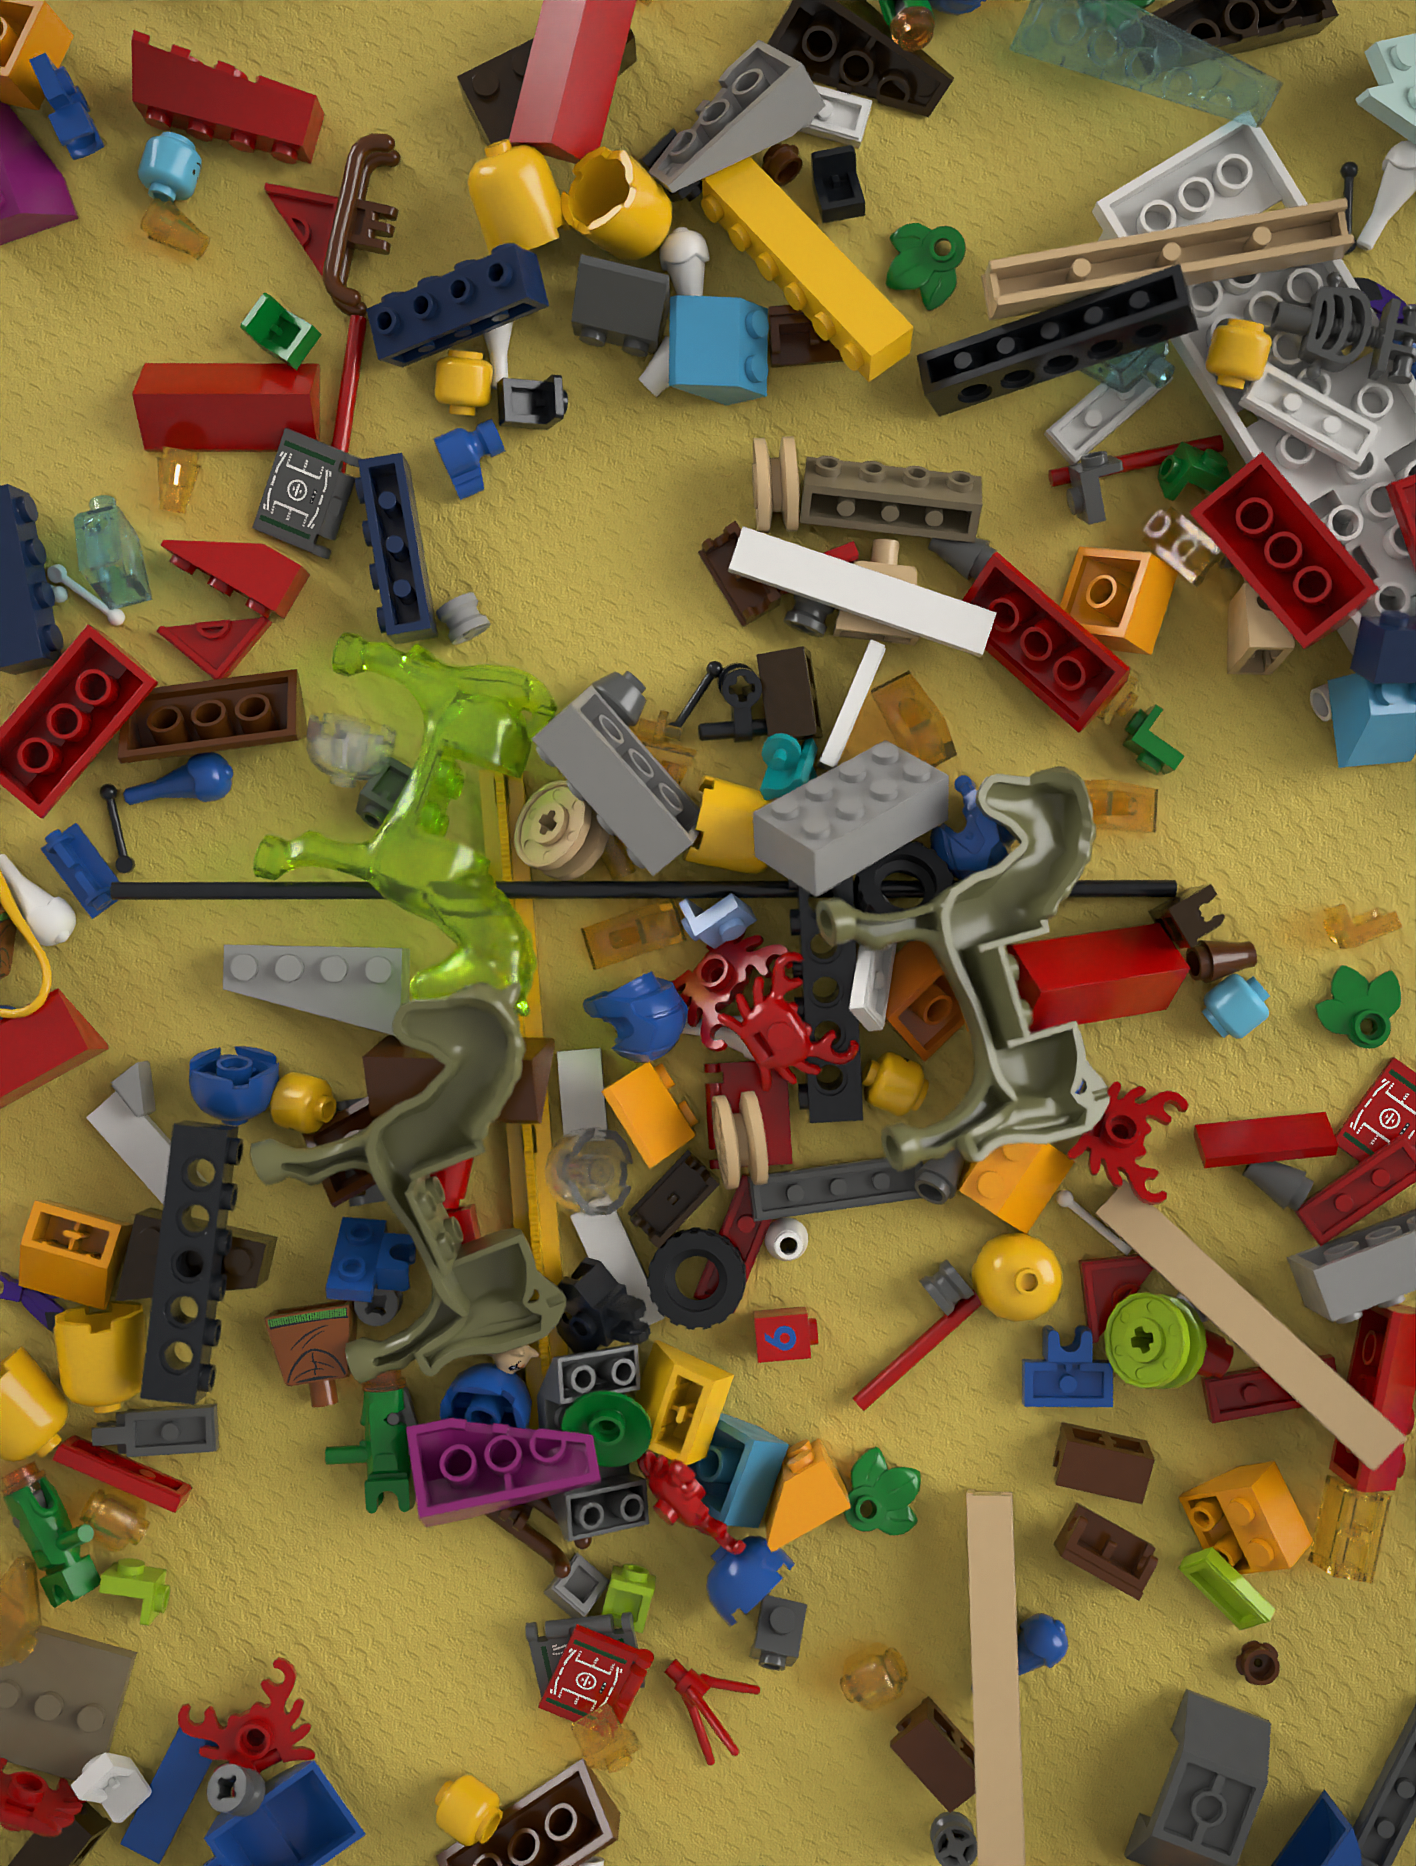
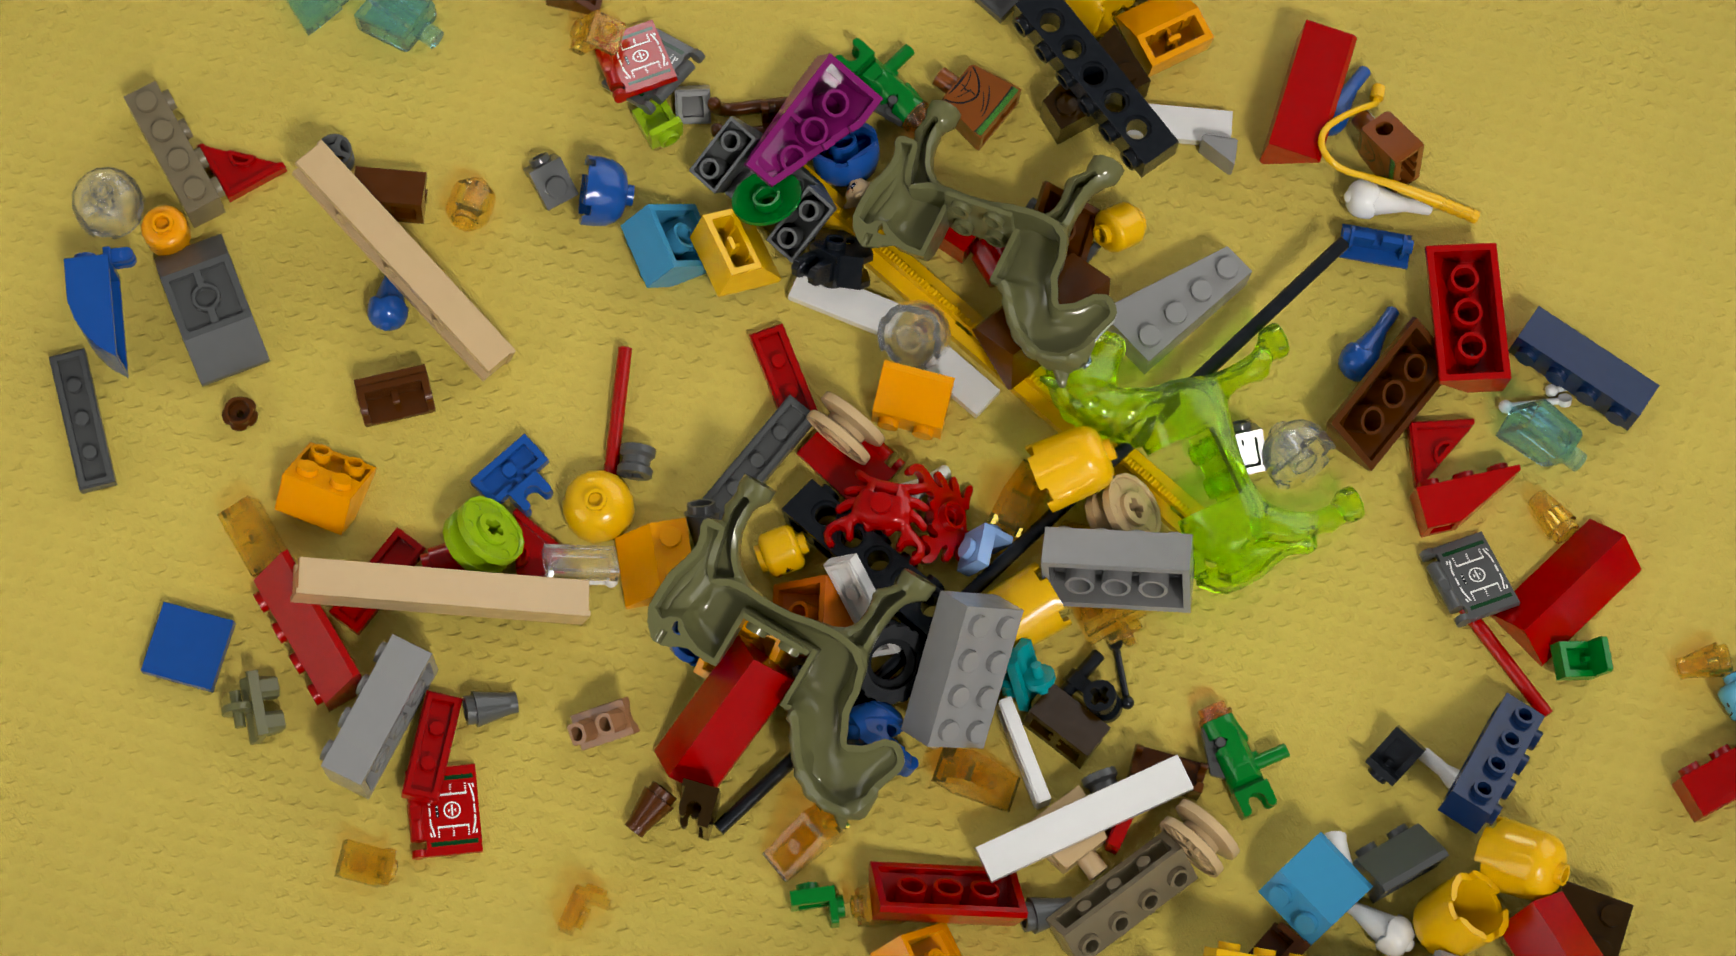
camera: 130 degrees right, 15 degrees down
(124, 863) = (1356, 272): black hinge -> none
(233, 1085) = (1169, 202): blue cylinder -> none
(307, 216) = (1631, 747): red tile -> none
(358, 220) = (1604, 765): reddish brown piece -> none
(369, 1257) = (997, 171): blue plate -> none
(389, 1300) = (963, 166): dark grey wheel -> none
(397, 549) = (1382, 591): dark blue brick -> none
(462, 455) = (1405, 688): blue piece -> none
(463, 381) = (1446, 731): yellow head -> none
(463, 618) = (1305, 590): light grey wheel -> none
(574, 910) = (1072, 465): none -> yellow cylinder
(623, 695) = (1166, 629): dark grey cone -> none
(645, 1015) = (971, 451): blue helmet -> none
(673, 530) = (1234, 761): none -> green piece
(673, 1198) = (849, 366): dark brown hinge -> none
(680, 1499) = (685, 198): red animal -> none
(692, 1689) = (570, 106): red plant -> none
(697, 1312) = (795, 306): black tyre -> none
(784, 1334) = (709, 348): red brick -> none
(785, 1228) = (756, 410): white cone -> none
(804, 1494) = (613, 268): light orange slope -> none
(888, 1492) = (561, 315): green plate -> none
(1083, 1238) = (581, 562): none -> clear tile
(1102, 1463) = (445, 444): reddish brown hinge -> none
(1120, 1137) = (617, 642): red animal -> none
(1199, 1071) = (602, 724): none -> medium nougat hips
(1226, 1589) = (301, 437): lime tile -> none
(1236, 1006) = (614, 787): medium azure head -> none
(1265, 1140) = (520, 723): red tile -> none
(1357, 1000) = (538, 866): green plate -> none

